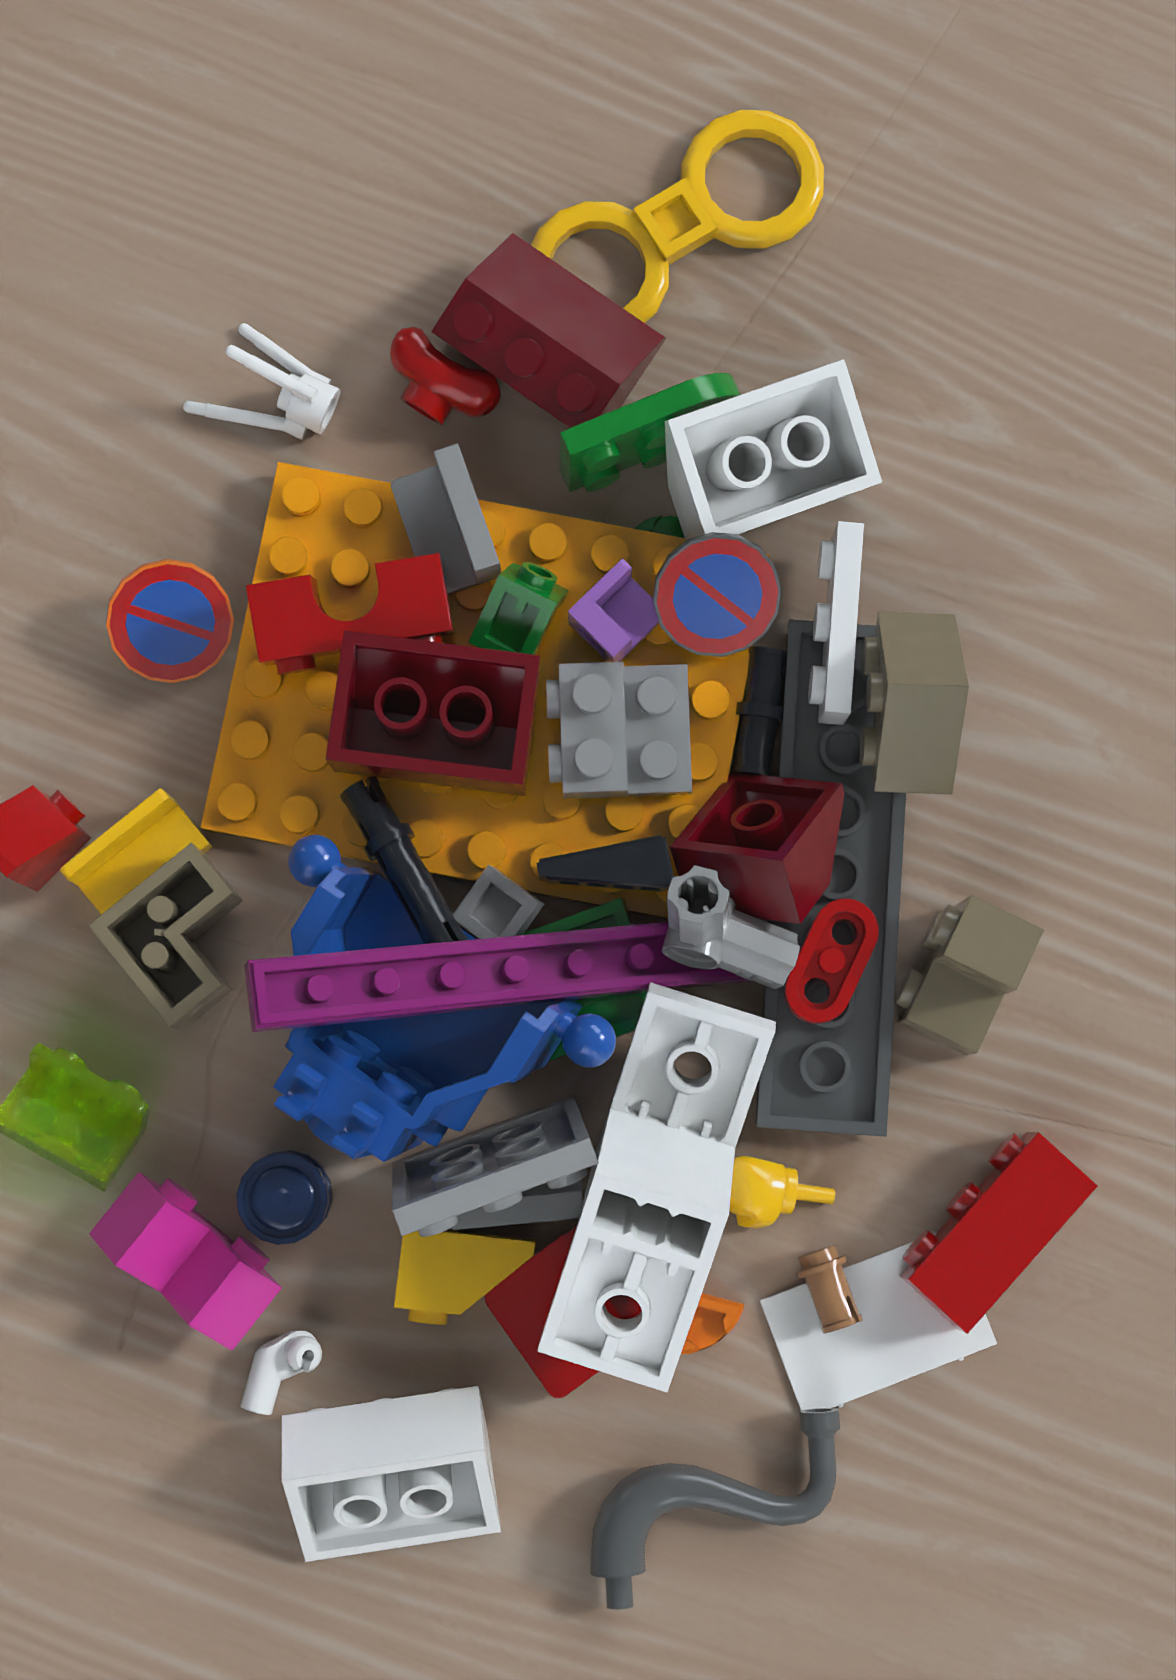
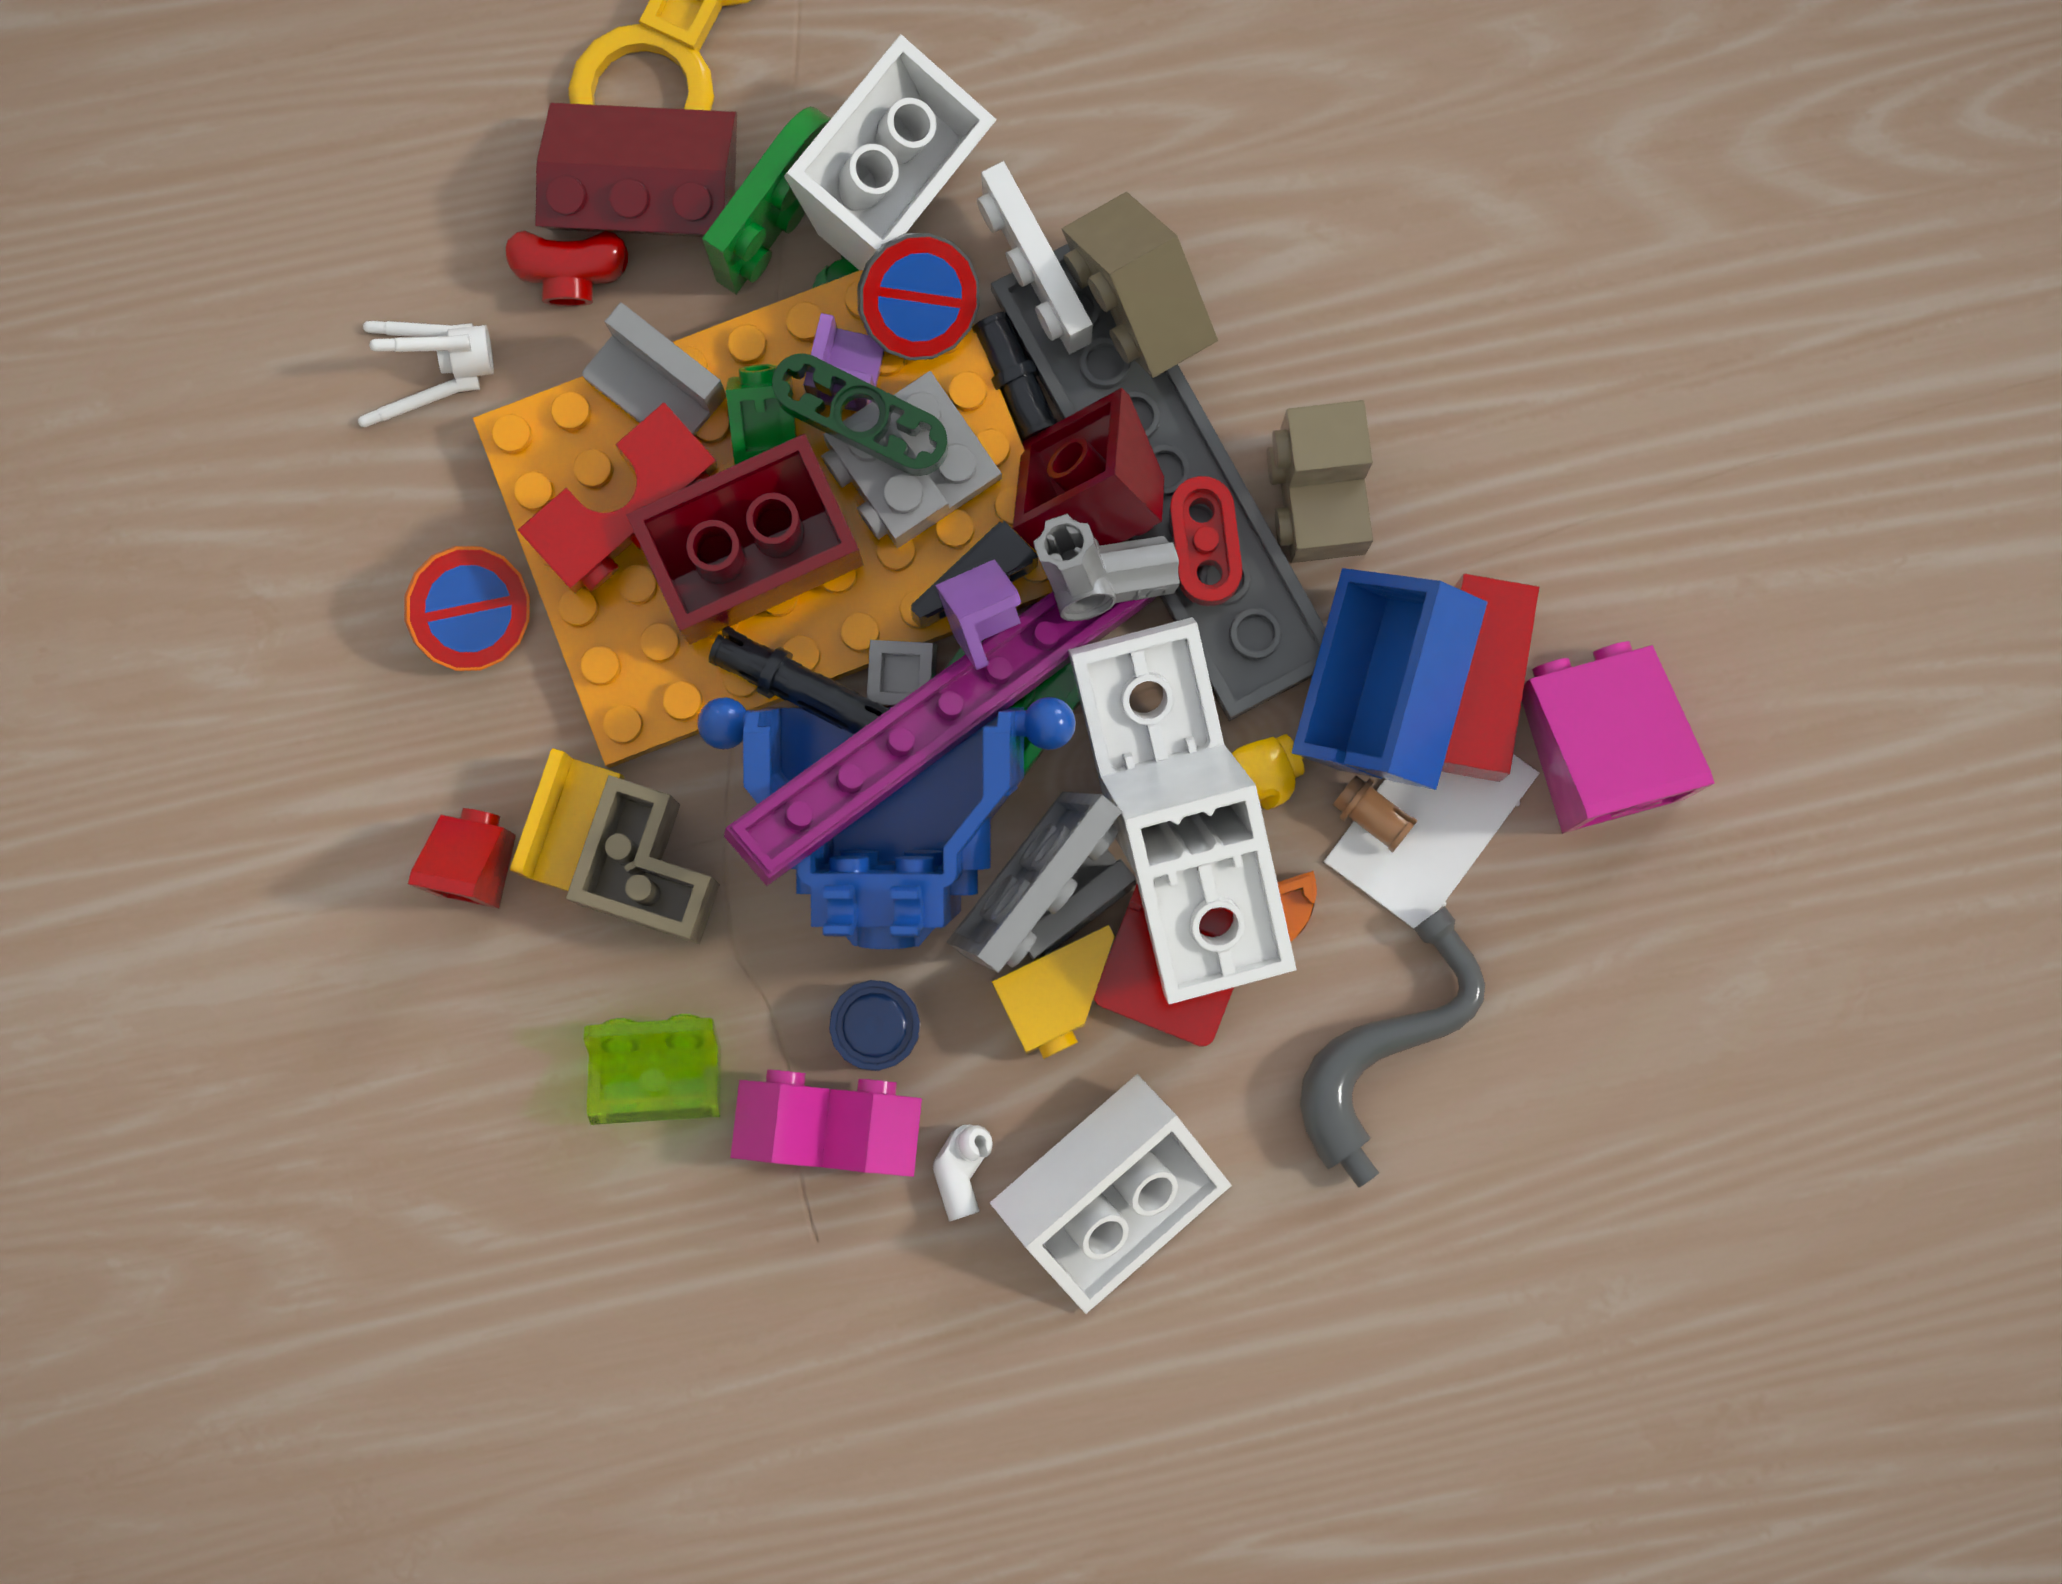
camera: 30 degrees left, 0 degrees up
(587, 619) = (810, 407): none -> dark green beam
(594, 898) = (978, 607): none -> medium lavender panel
(914, 1184) = (1389, 677): none -> blue piece
(1079, 1359) = (1612, 736): none -> dark pink slope

